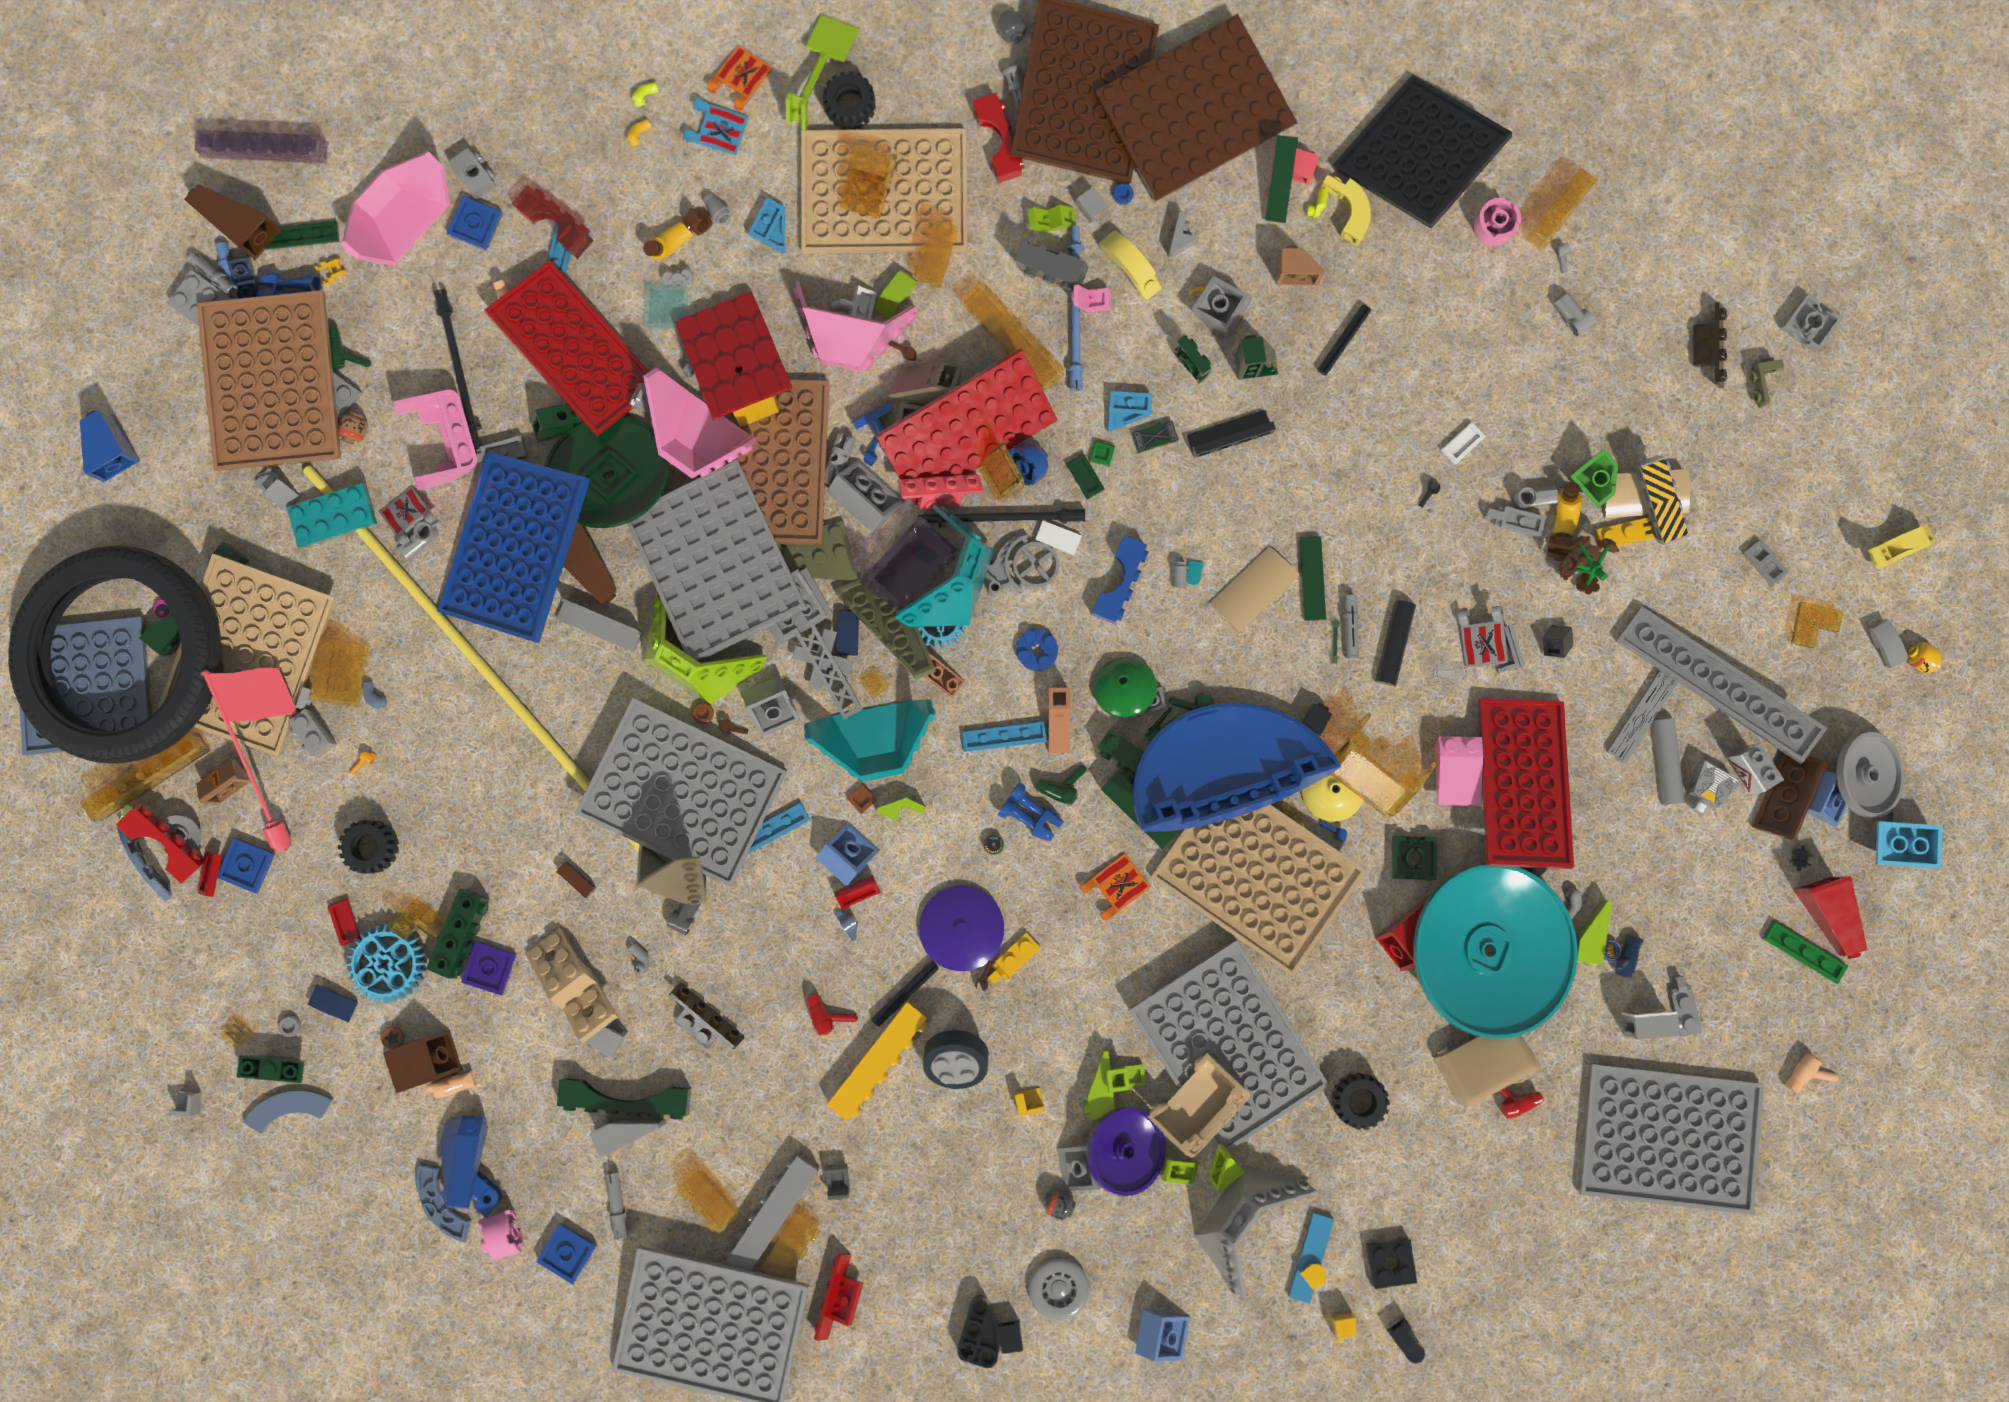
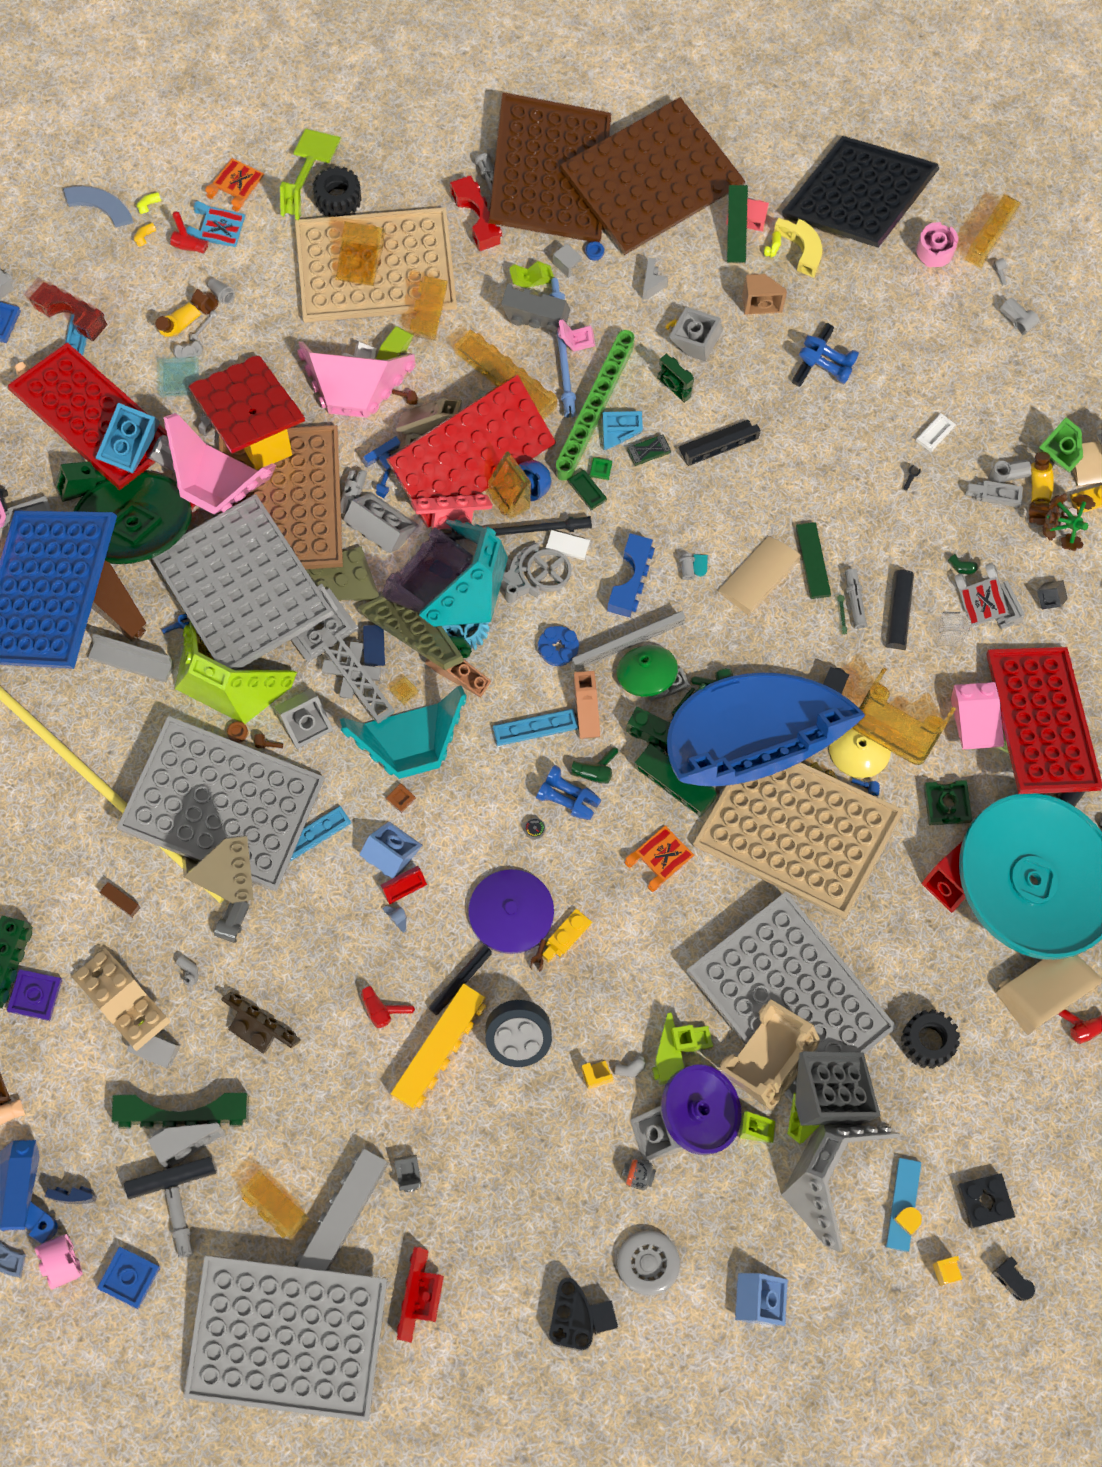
camera: 10 degrees left, 15 degrees down
(521, 1172) = (77, 1196): none -> dark blue slope
(594, 85) = (100, 199): none -> sand blue tile
(607, 382) = (127, 438): none -> dark azure slope
(611, 1162) = (170, 1177): none -> black brick
(646, 591) = (179, 624): none -> blue hand
(681, 145) = (184, 241): none -> red piece
(685, 260) = (213, 314): none -> light grey hinge
(770, 225) = (272, 301): dark azure wing -> none
(791, 1245) = (366, 1243): clear yellow brick -> none
(894, 809) = (432, 802): lime slope -> none
(937, 646) = (462, 645): none -> dark green arm
(1011, 26) = (479, 124): dark grey head -> none
(1064, 1099) = (632, 1069): none -> light grey arm
(1104, 370) = (592, 412): none -> bright green beam
(1109, 652) = (628, 640): none -> light grey tile
(1133, 263) = (611, 301): light yellow arch -> none
(1255, 358) = (732, 371): dark green wedge -> none
(1258, 1148) = (834, 1089): none -> dark grey slope
(1379, 352) = (816, 347): none -> blue piece
(1469, 601) = (963, 567): none -> dark green arm

